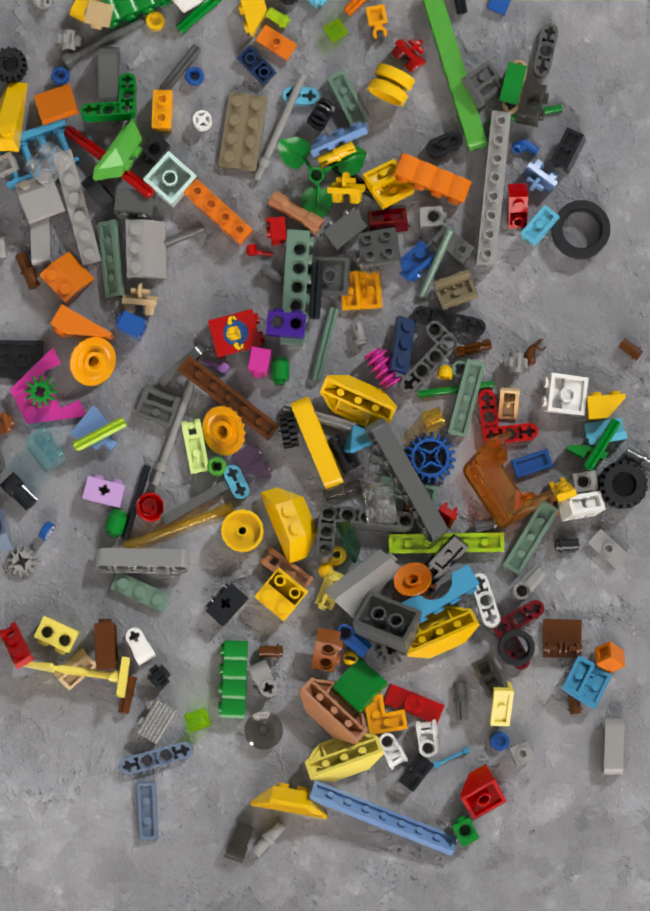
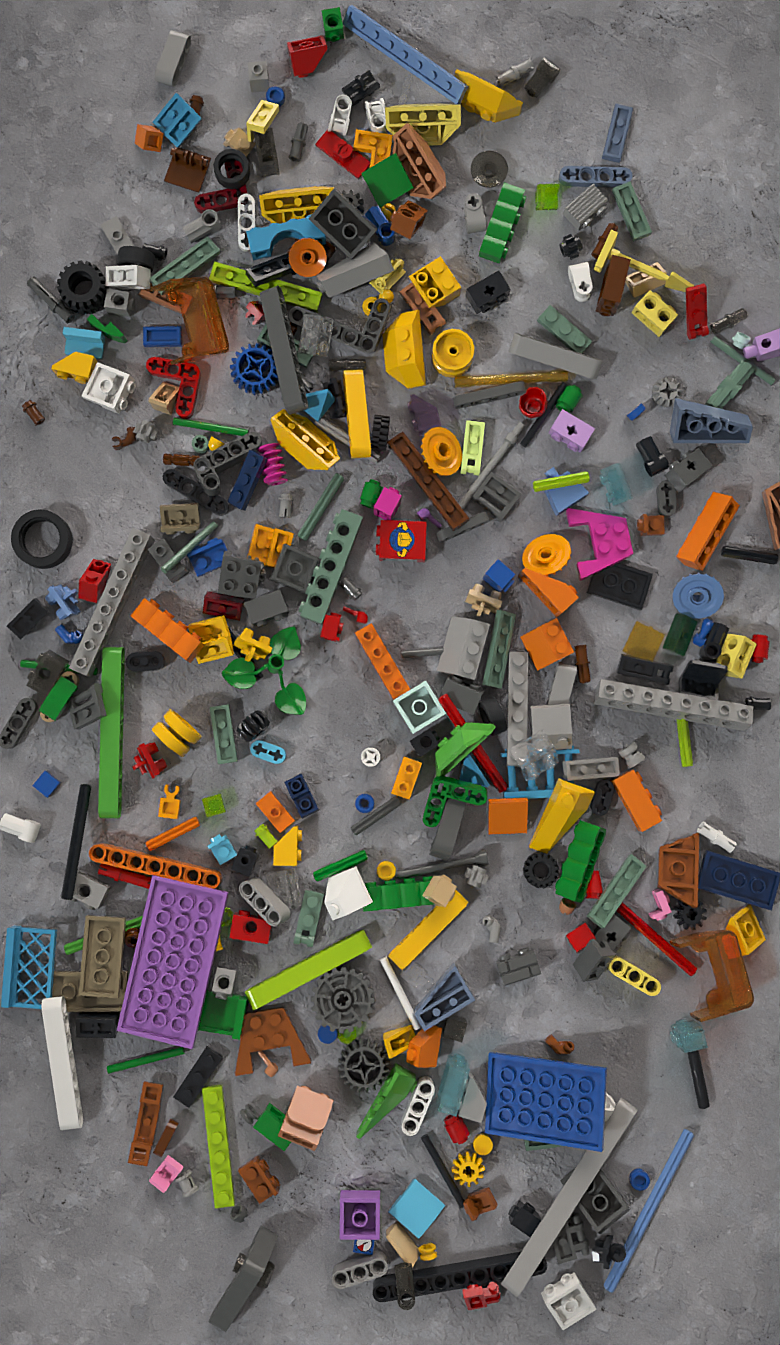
camera: 165 degrees left, 0 degrees up
(47, 394) = (602, 545): green gear -> none
(60, 71) = (494, 839): blue plate -> none
(101, 133) = (471, 772): none -> dark azure slope
(109, 732) = (631, 211): none -> sand green plate
(212, 462) = (458, 415): bright green cone -> none
(241, 480) = (448, 403): medium azure beam -> none
(242, 131) = (334, 735): dark tan plate -> none
(264, 161) = (323, 698): light grey bar -> none
(271, 651) = (459, 238): reddish brown pin -> none
(285, 329) = (353, 524): dark purple brick -> none
(307, 219) = (299, 628): nougat axle -> none
(315, 291) = (313, 556): black axle -> none
(331, 141) = (250, 696): medium blue wing -> none
(336, 154) = (250, 680): yellow pin -> none
(350, 540) = (354, 312): clear green slope -> none
(424, 222) = (187, 598): light grey brick -> none
(433, 419) = (240, 402): clear yellow brick -> none
(465, 750) = (309, 97): dark azure hinge -> none
(466, 397) = (202, 413): sand green plate -> none
(520, 680) = (238, 140): none -> tan bracket
(539, 225) = (78, 552): medium azure panel -> none
(562, 490) = (140, 293): yellow hinge -> none
(579, 526) = (135, 256): none -> black tyre
(601, 444) = (89, 326): green axle -> none

